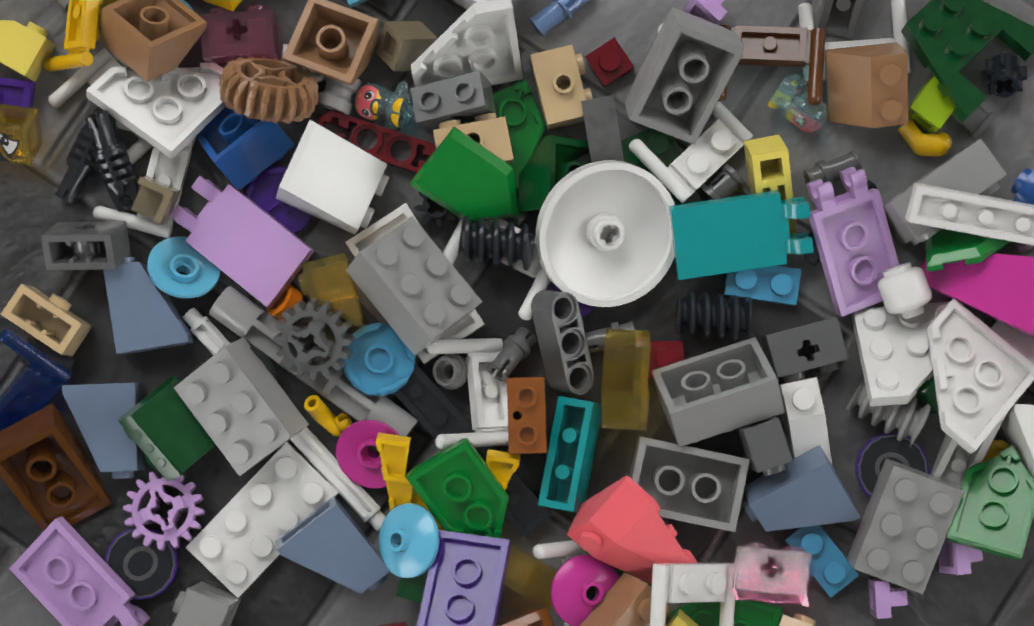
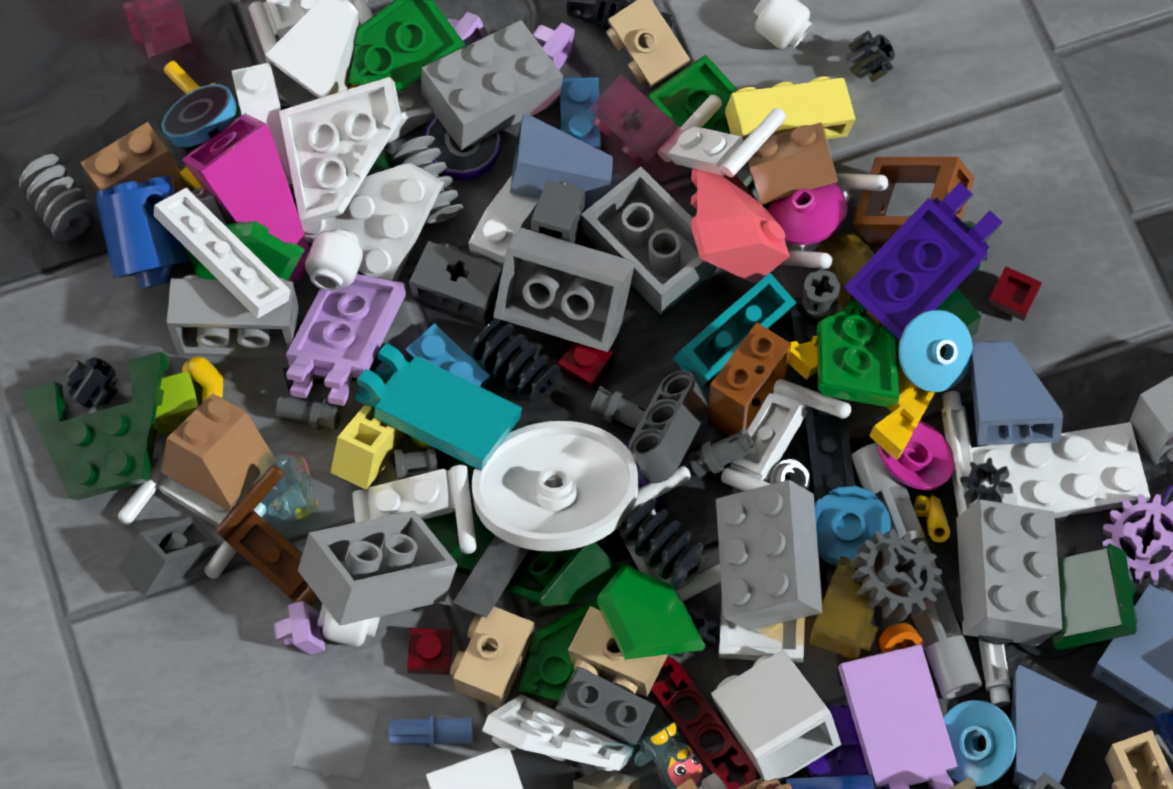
camera: 150 degrees left, 20 degrees down
(296, 453) = (990, 474): none -> black gear
(519, 536) = (813, 286): none -> dark grey bush
(625, 379) = (639, 353): clear yellow panel -> none

